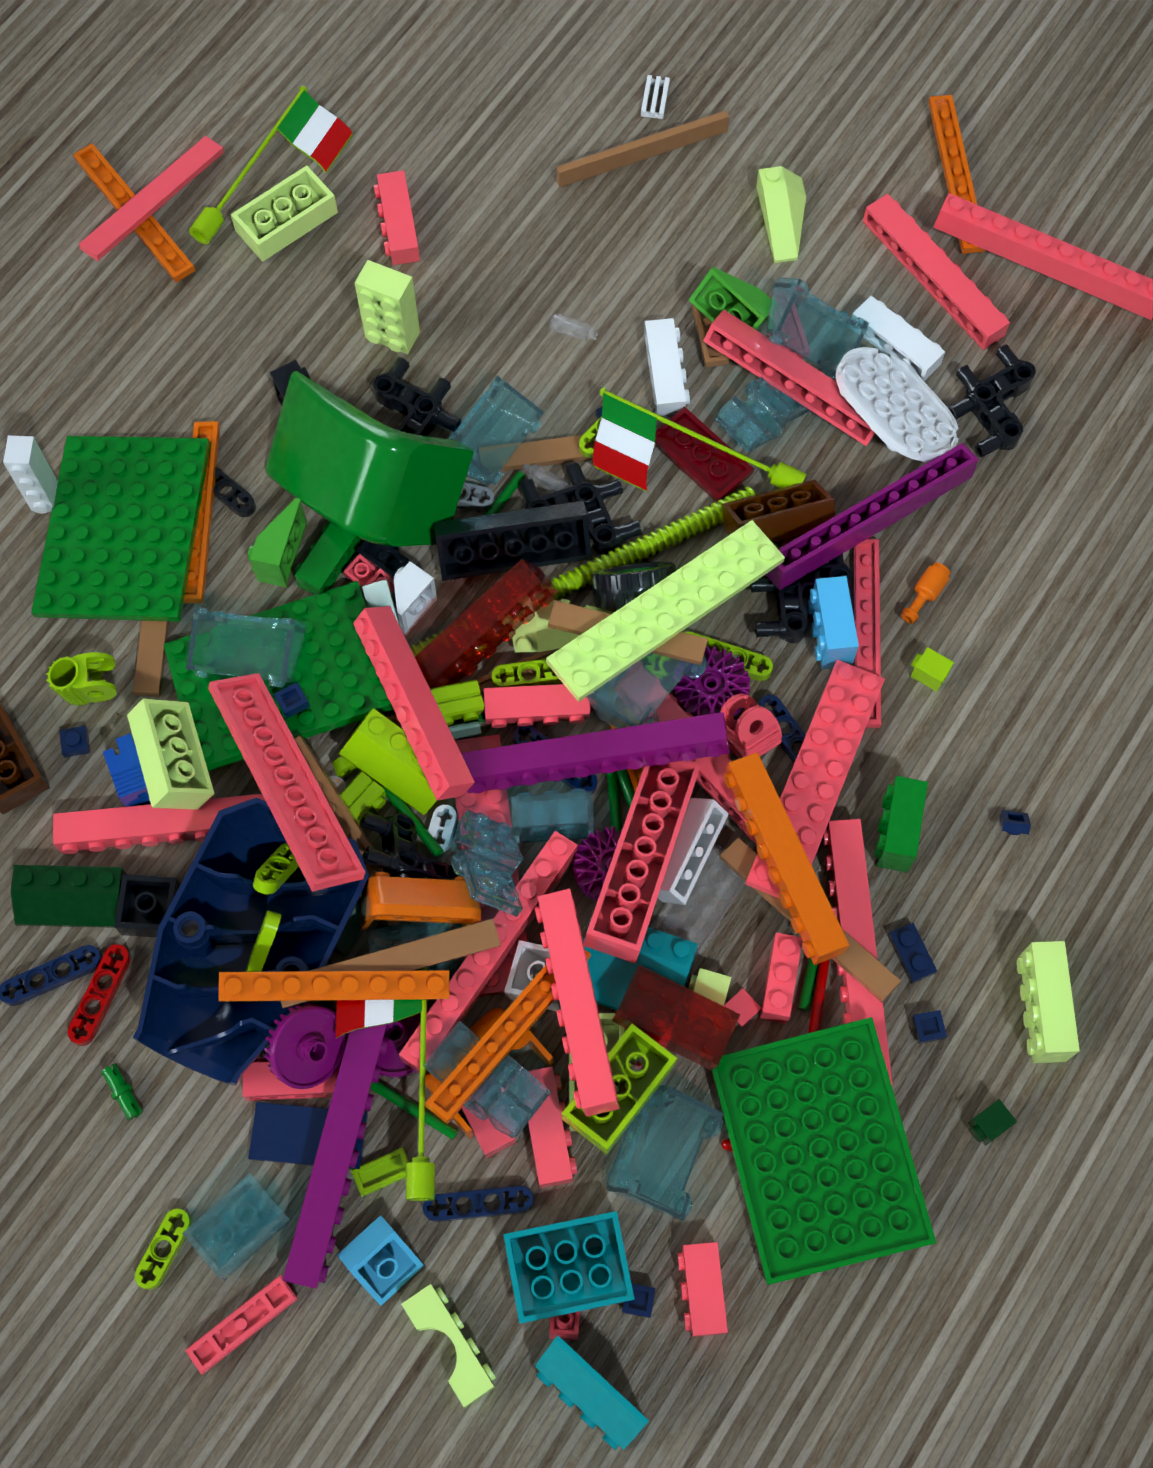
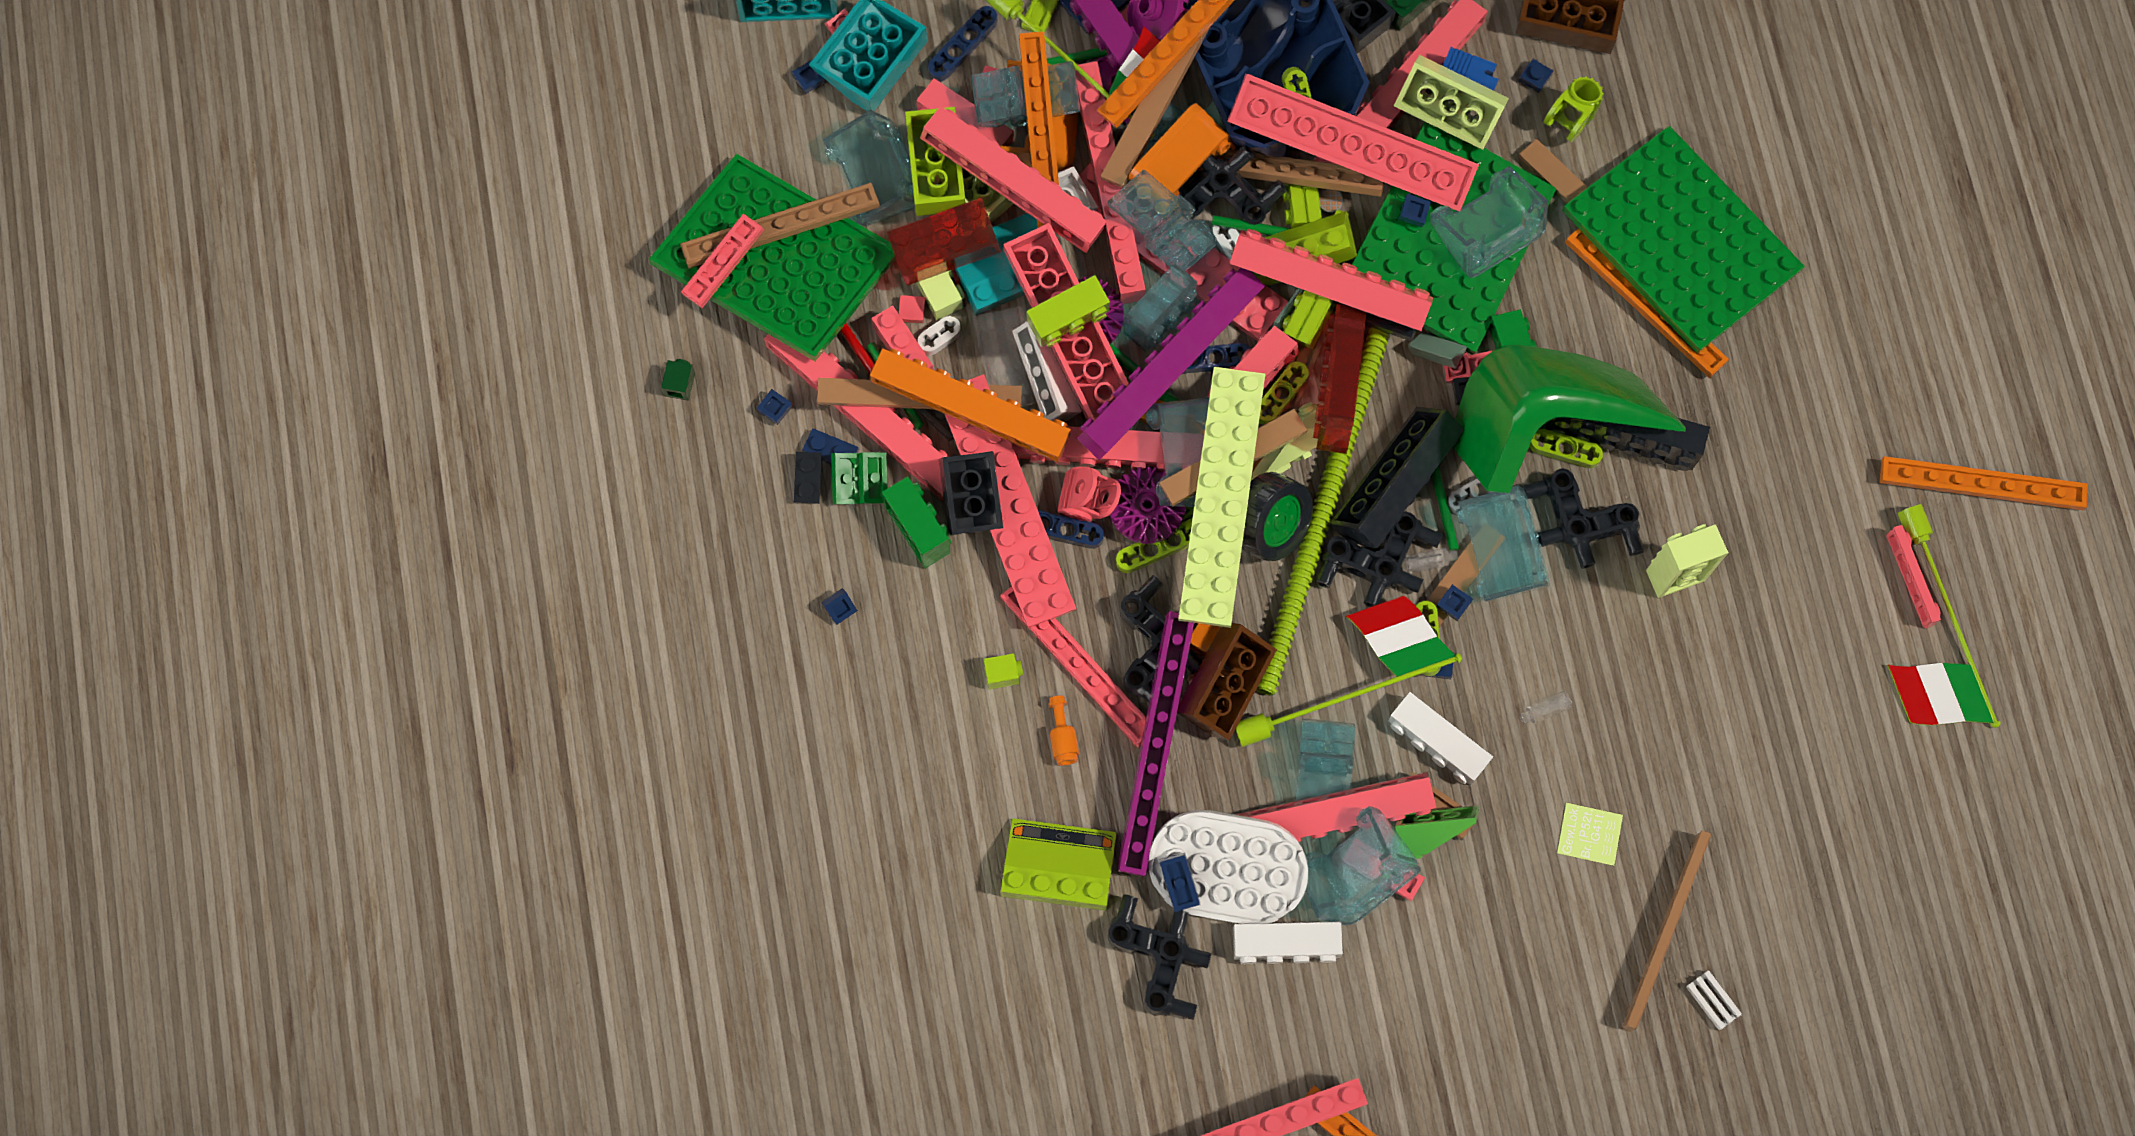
camera: 135 degrees right, 5 degrees up
(31, 472) = (1777, 192): white brick -> none
(151, 198) = (1981, 504): coral tile -> none
(230, 500) = (1629, 344): black beam -> none
(256, 186) = (1901, 546): none -> coral plate
(263, 942) = (1255, 48): lime beam -> none
(278, 545) = (1552, 315): bright green slope -> none
(284, 213) = (1880, 575): yellowish green brick -> none
(398, 218) = (1783, 673): coral brick -> none
(414, 595) = (1423, 370): white slope -> none
(563, 433) = (1454, 602): none -> dark blue plate
(626, 242) = (1590, 834): none -> yellowish green sticker
(647, 841) = (1068, 312): none -> lime brick
(702, 1289) = (774, 116): coral brick -> none
(706, 465) = (1317, 683): dark red plate -> none
(741, 958) = (936, 331): none -> white beam
(783, 208) = (1499, 987): yellowish green wedge -> none
(798, 1166) = (791, 221): none -> medium nougat tile
(832, 621) = (1104, 631): medium azure brick -> none
(845, 797) = (970, 493): none -> black slope
(879, 1170) = (722, 261): none -> coral plate
(911, 905) = (858, 478): none -> green slope
(936, 271) = (1317, 1040): coral brick -> none
(942, 419) = (1179, 882): none -> dark blue plate
(952, 944) = (807, 477): none -> black plate
(1011, 511) = (1058, 864): none -> lime piece
(1048, 1002) = (706, 487): yellowish green brick -> none

